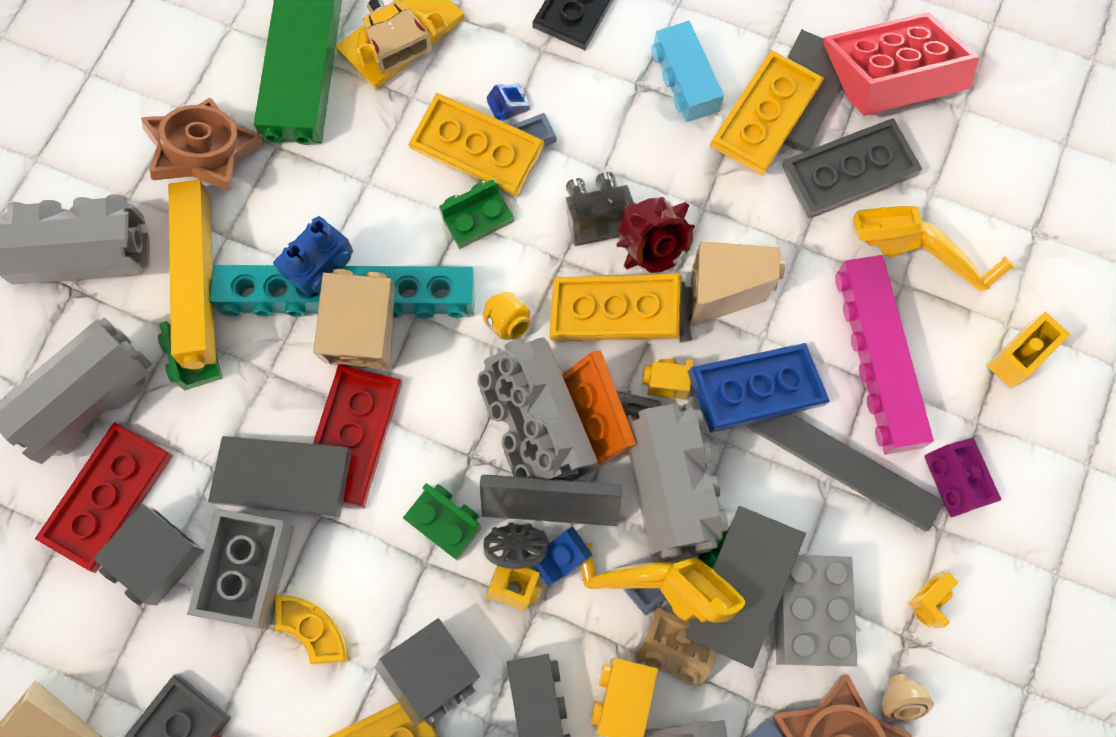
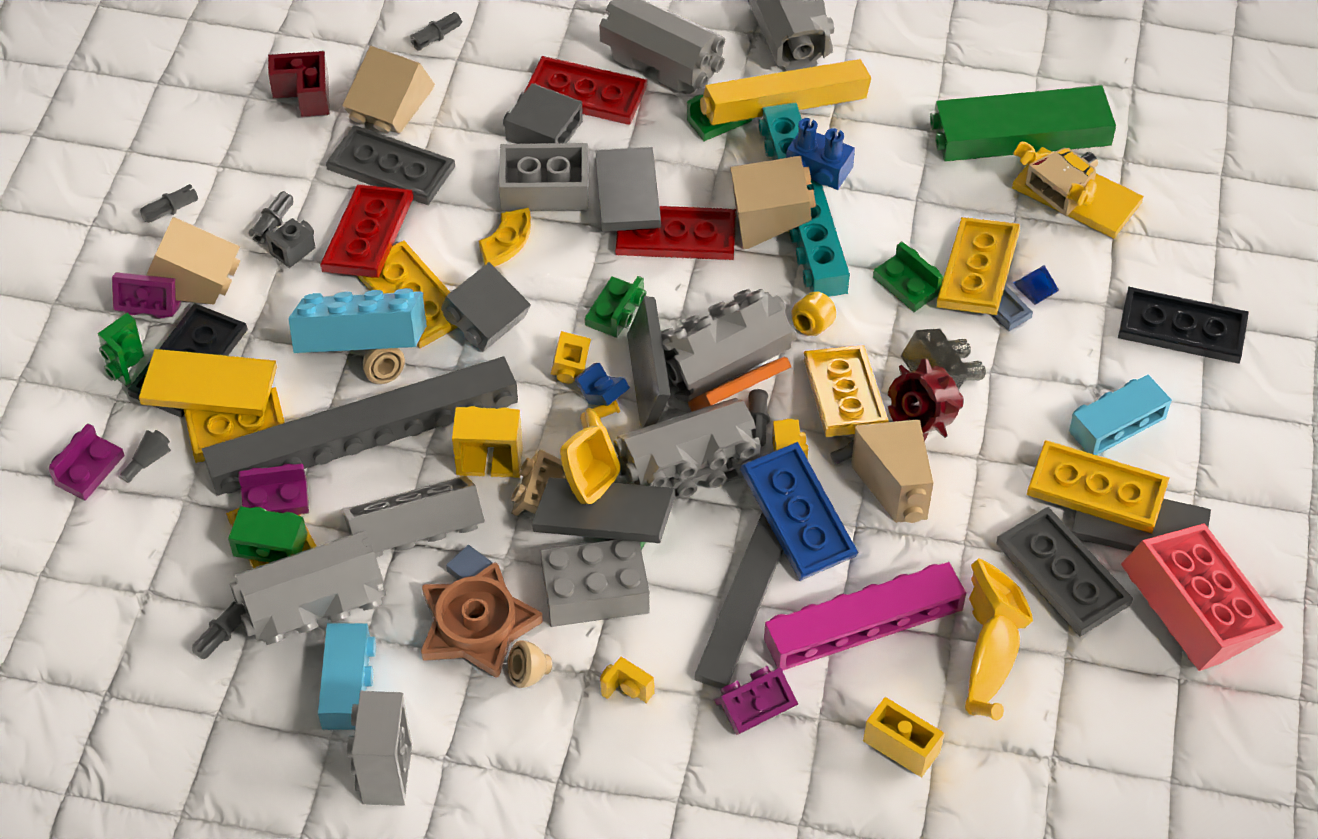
camera: 80 degrees right, 20 degrees down
(198, 144) = (905, 71): nougat plate -> none
(516, 546) = (604, 350): dark grey wheel -> none

